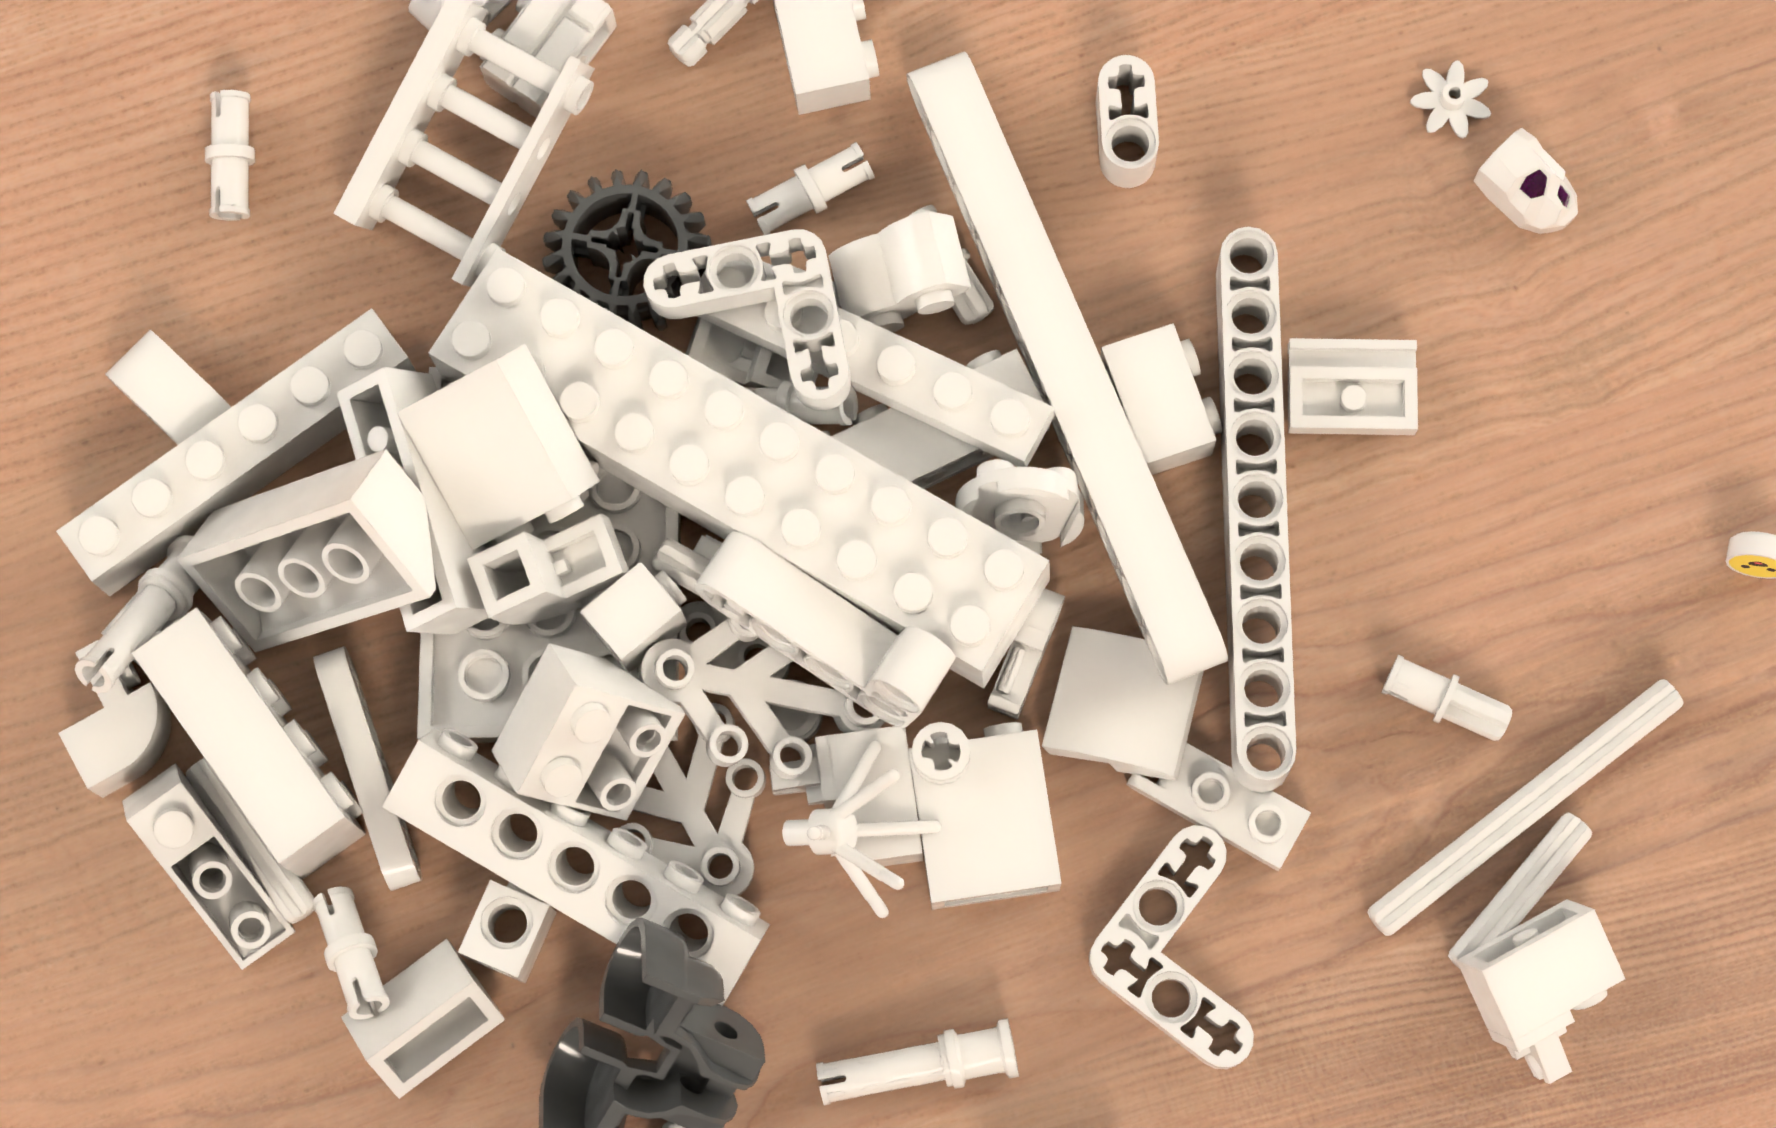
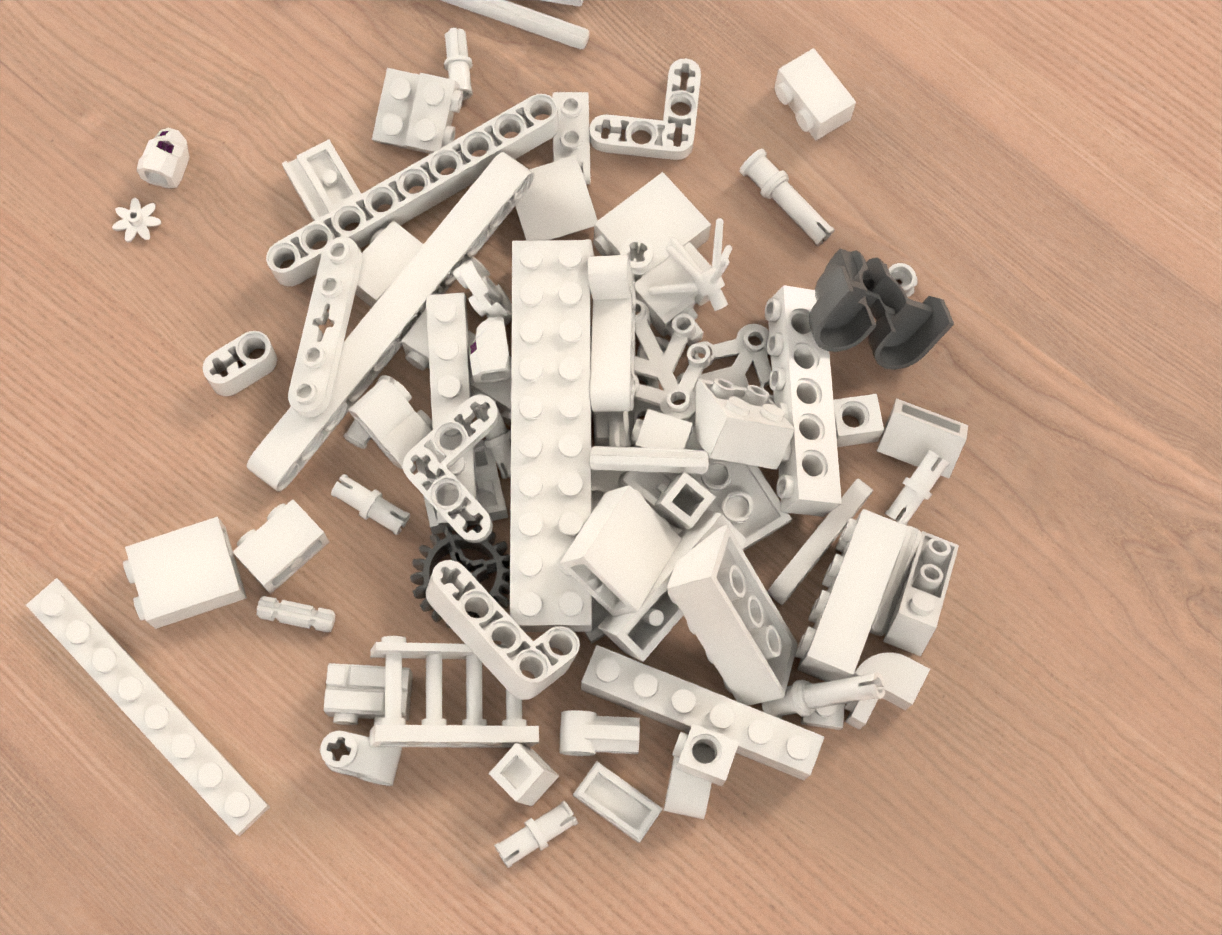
camera: 130 degrees left, 5 degrees down
(142, 398) = (722, 746): none -> white brick
(204, 285) = (617, 802): none -> white tile
(306, 173) = (523, 774): none -> white brick
(311, 293) = (586, 733): none -> white piece
(511, 229) = (455, 591): none -> white beam
(599, 558) = (649, 460): none -> white axle
(914, 450) = (490, 353): none -> white rock
(1143, 293) = (320, 353): none -> white piece
(1388, 584) = (417, 111): none -> white plate

